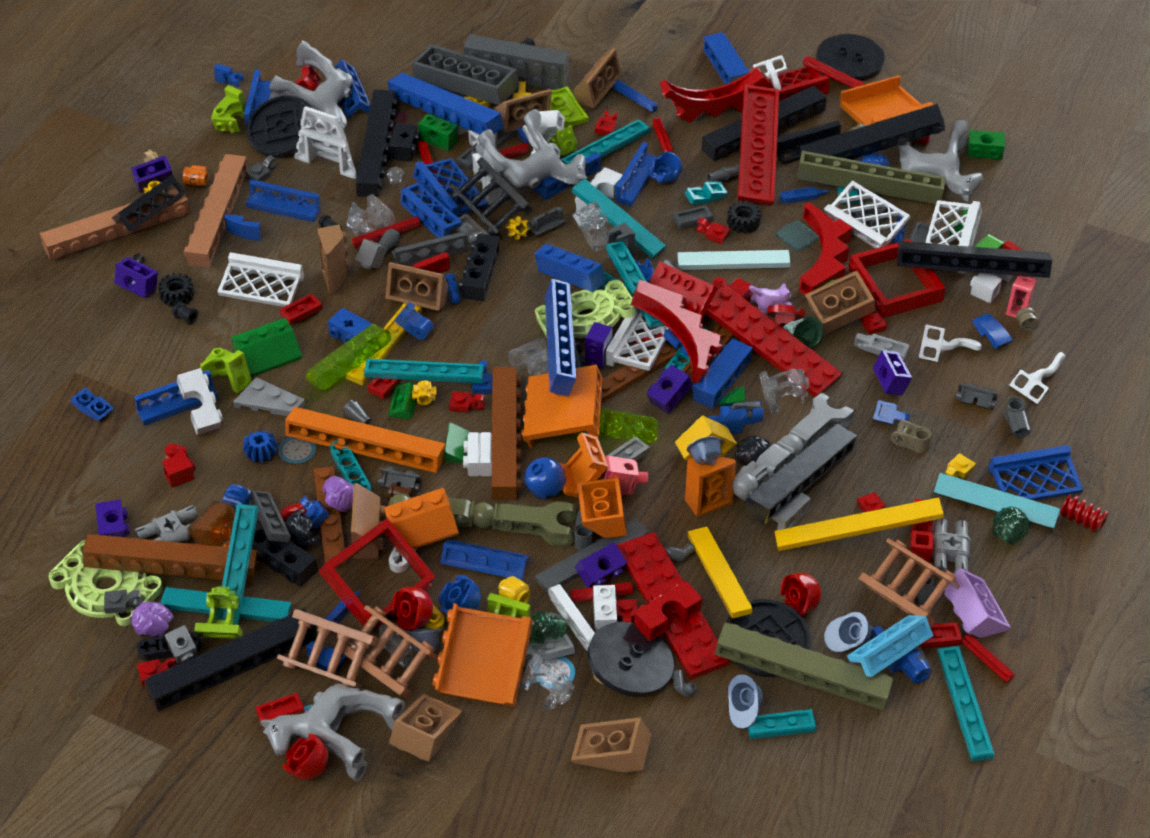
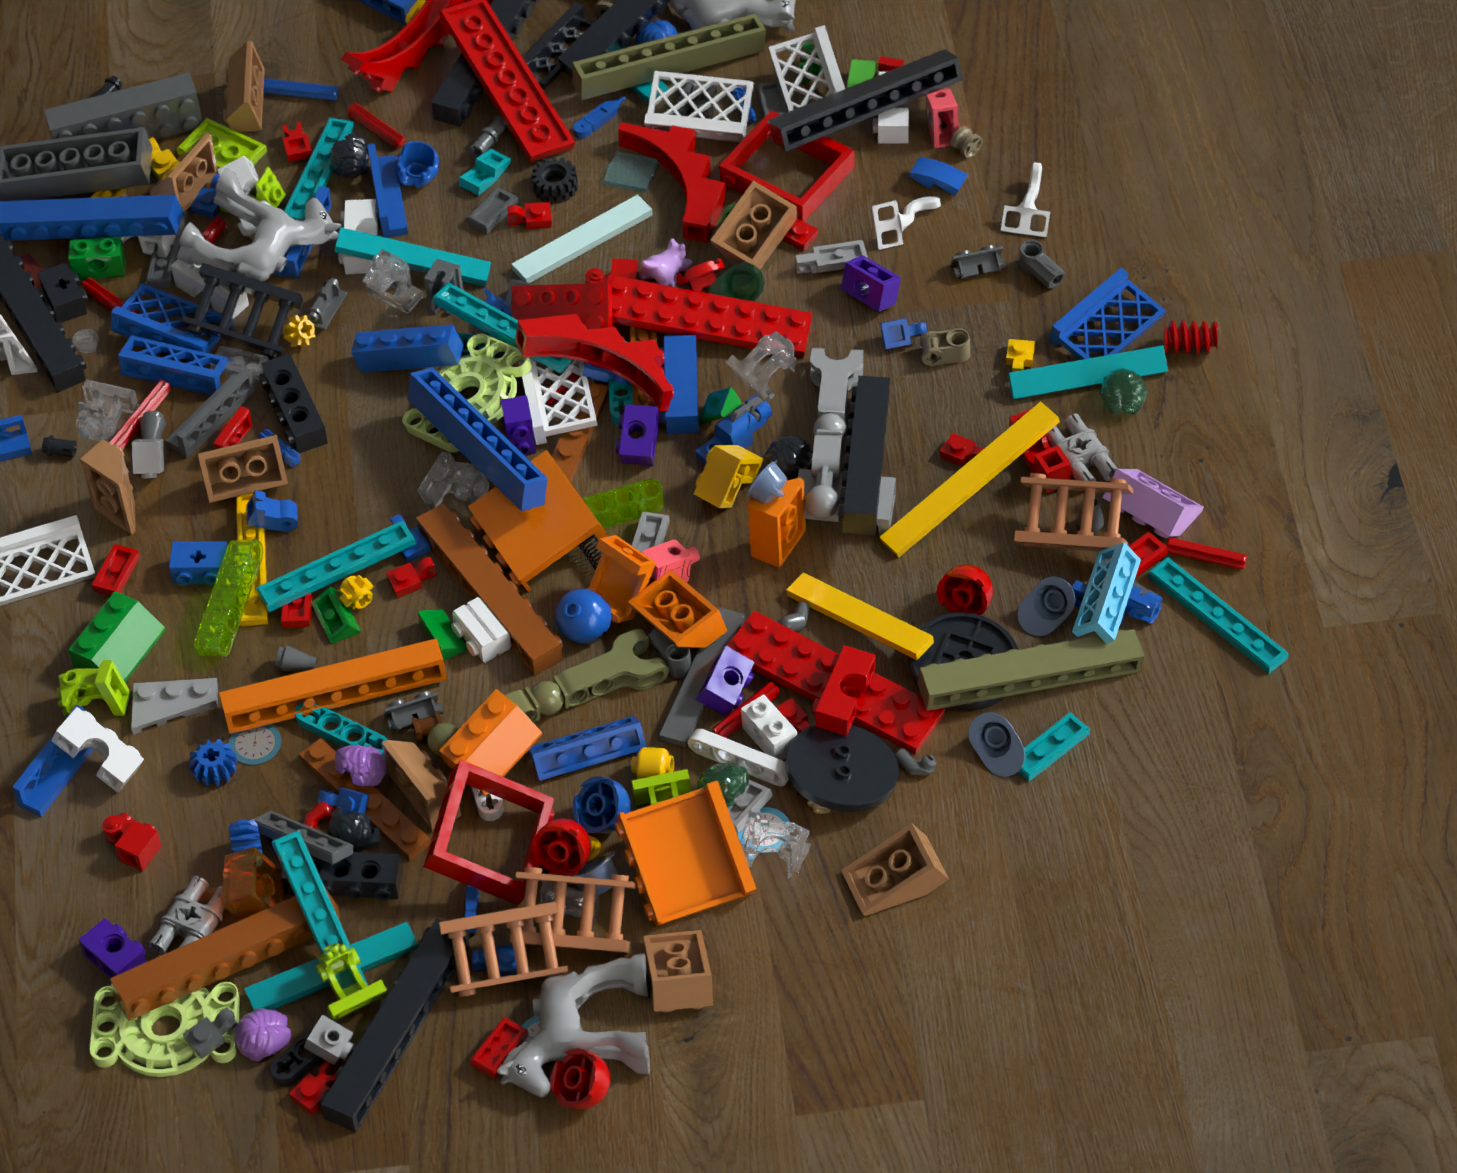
camera: 30 degrees left, 5 degrees up
(628, 143) = (350, 156): none -> black hair

